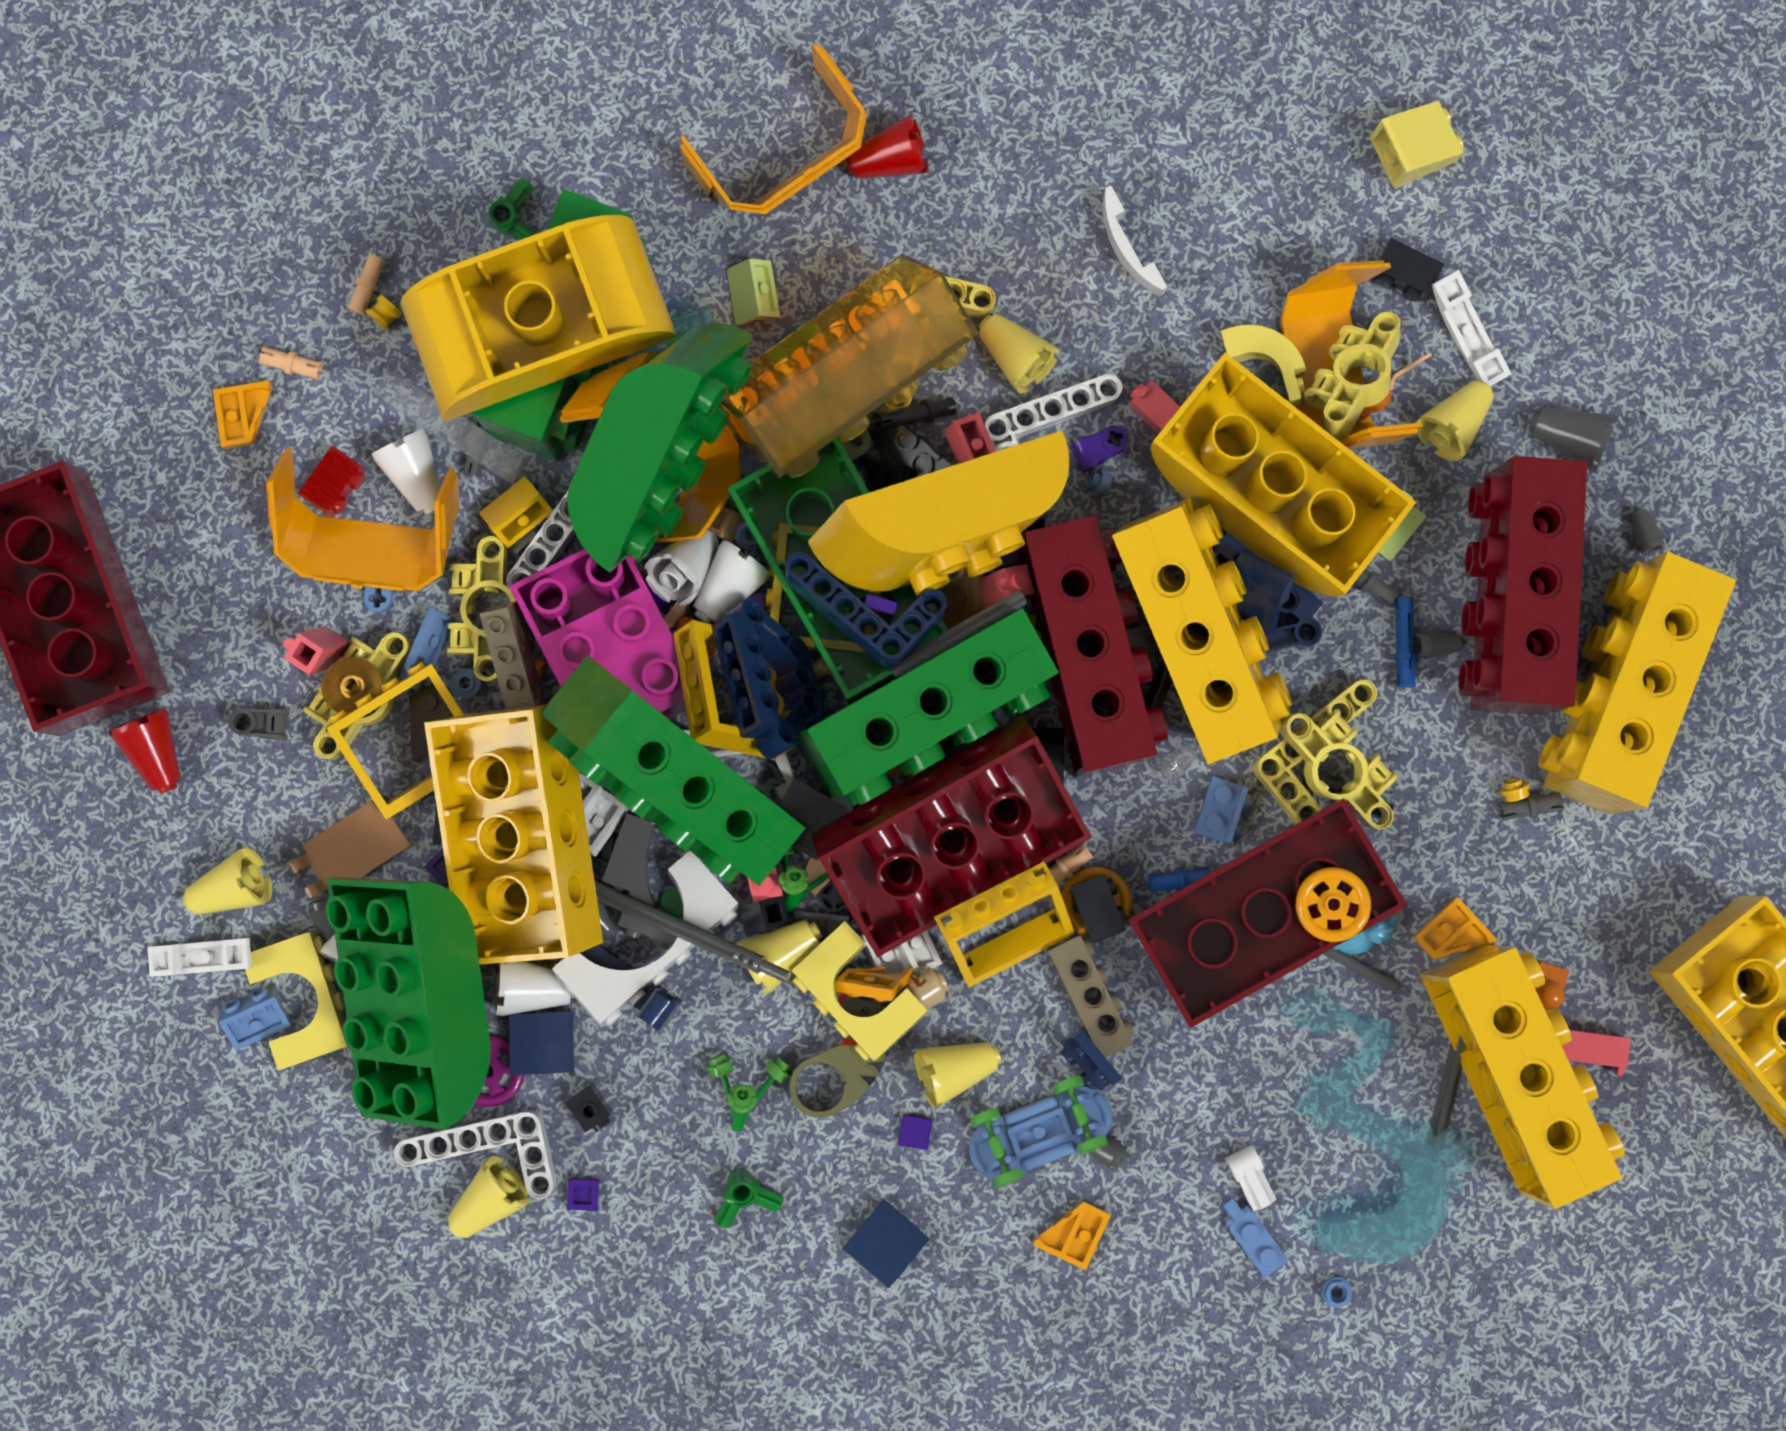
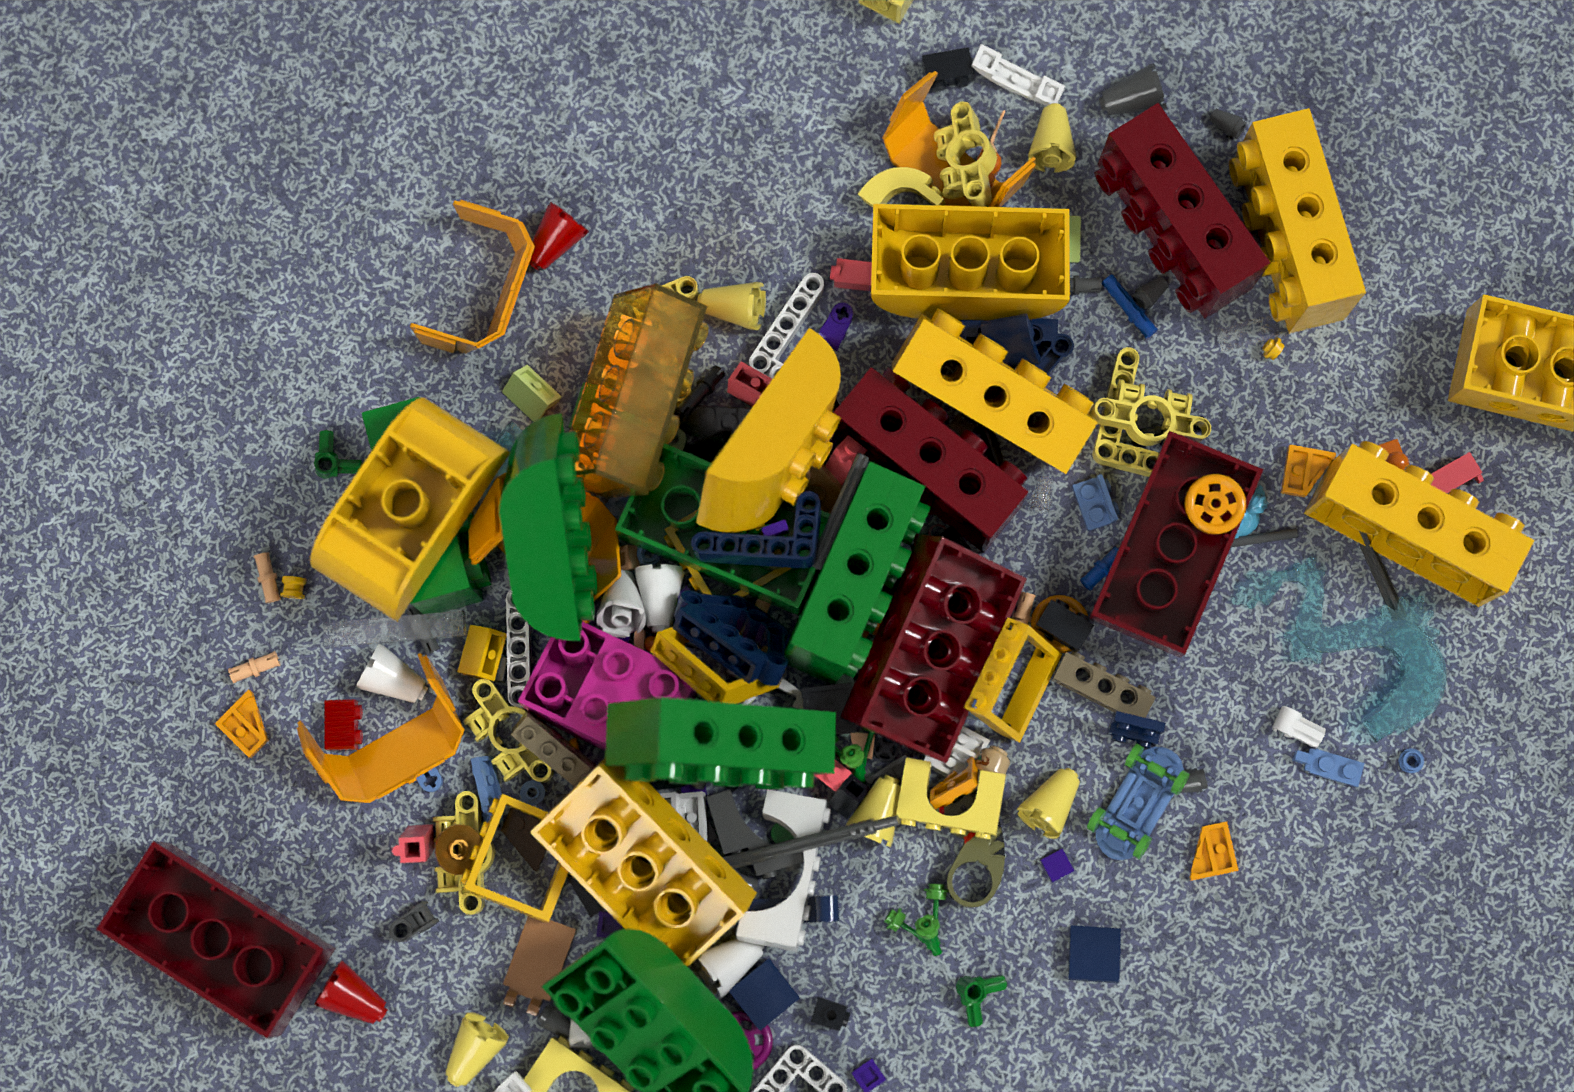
camera: 30 degrees left, 5 degrees down
(1099, 483) = (853, 349): medium blue plate -> none
(1148, 275) = (783, 194): white slope -> none
(1531, 806) = (1291, 351): dark grey pin -> none

